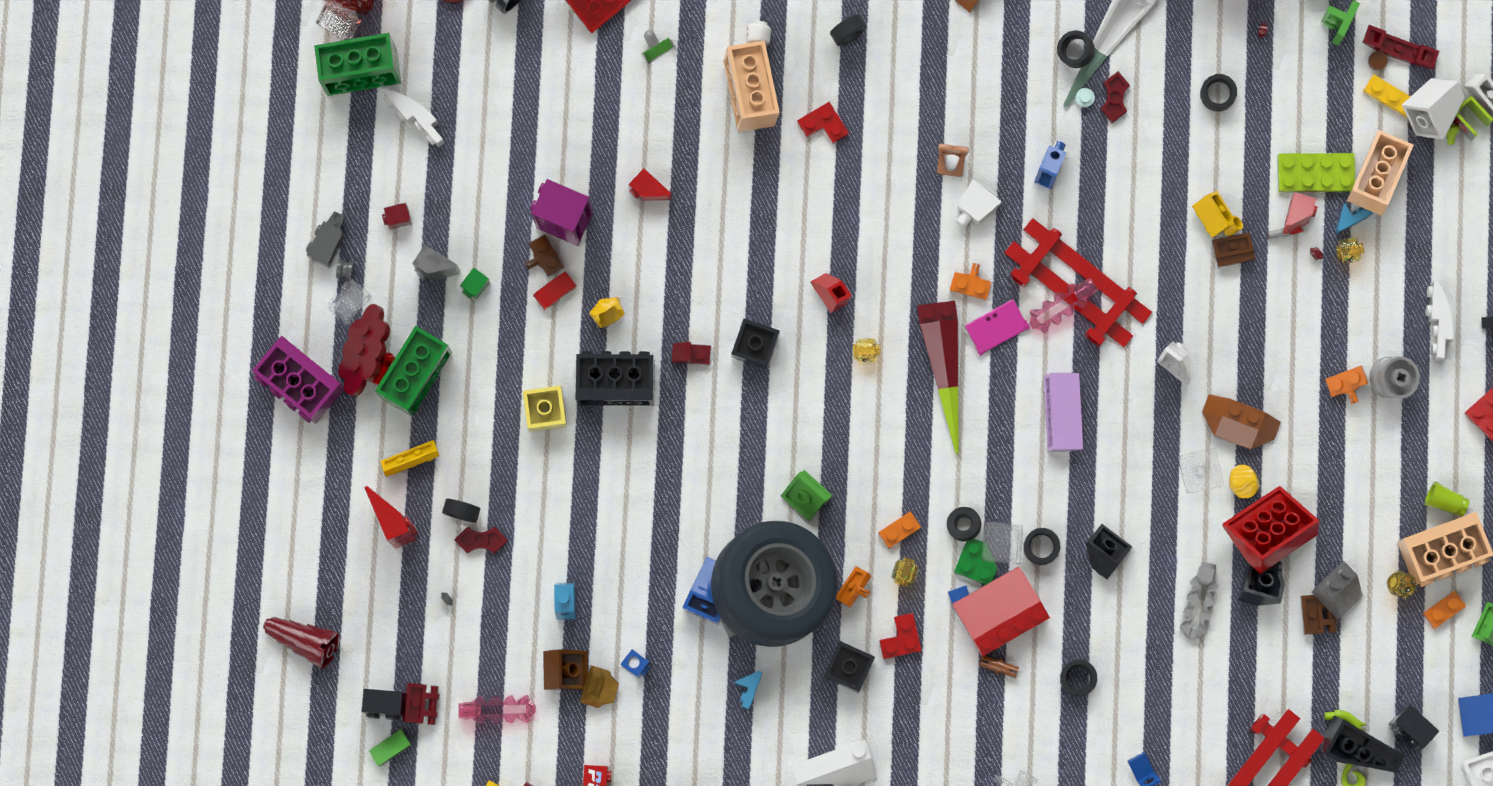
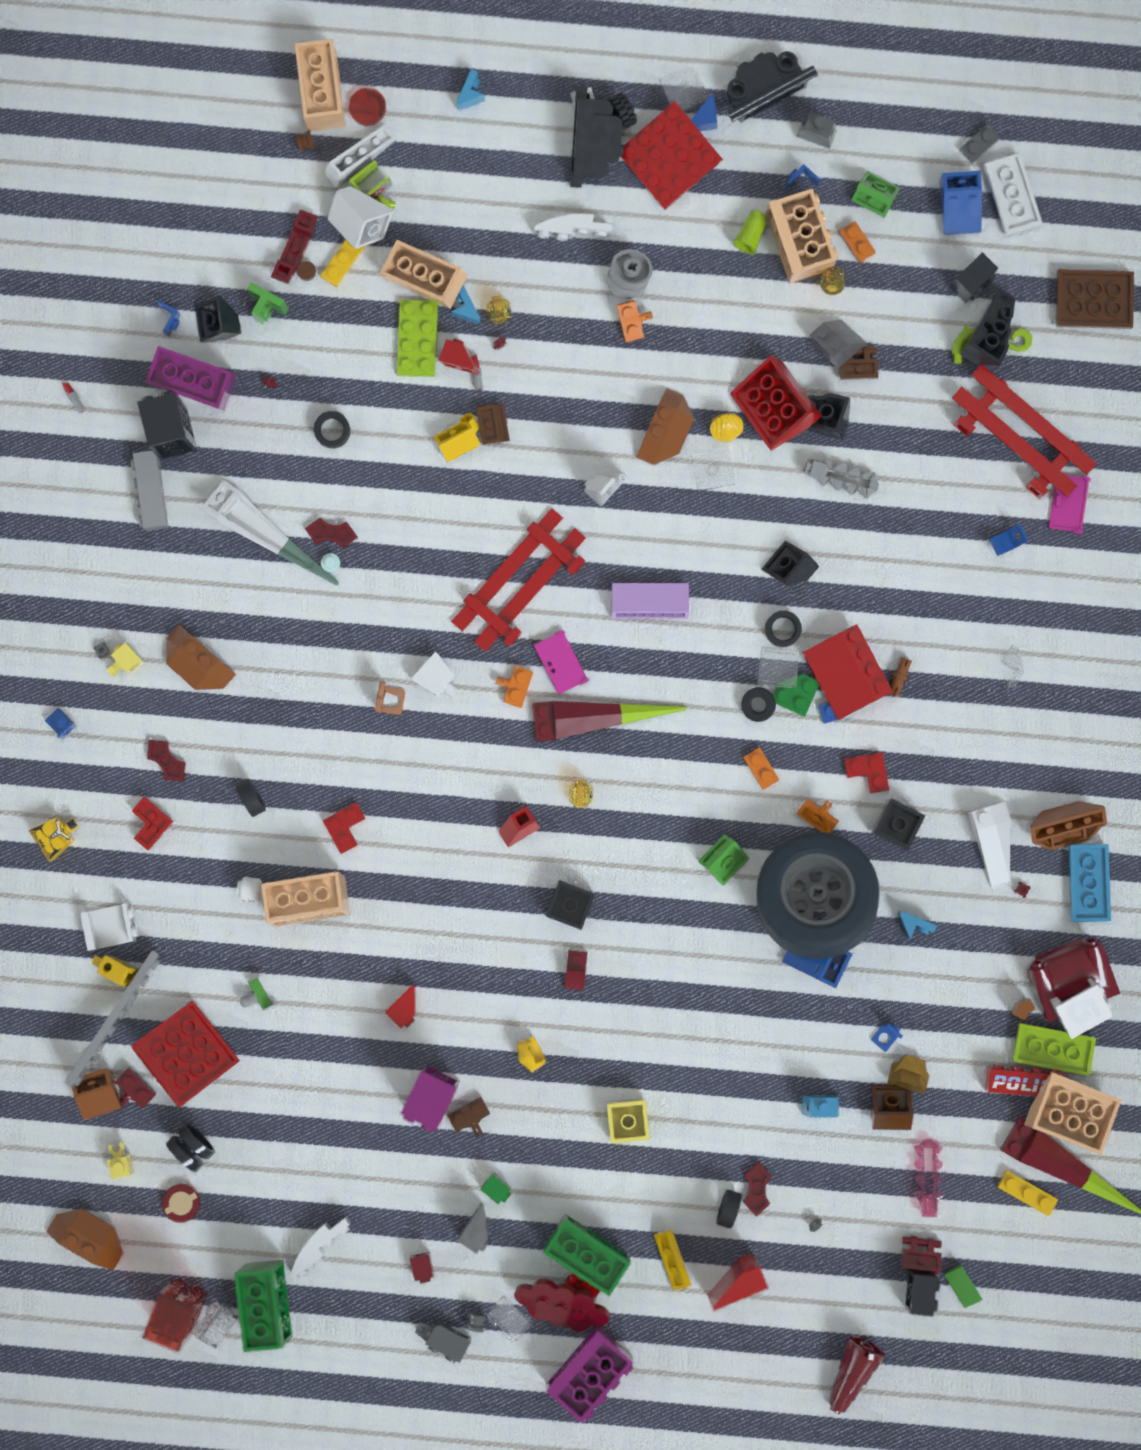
camera: 95 degrees left, 5 degrees up
(554, 290) = (505, 1106): red slope -> none
(619, 391) = (613, 1055): black brick -> none
(905, 572) = (805, 764): clear yellow head -> none
(1051, 165) = (404, 602): torso -> none
(1081, 692) = (928, 599): black tyre -> none
(1082, 291) = (530, 575): clear pink sword -> none
(1086, 57) = (281, 554): black tyre -> none

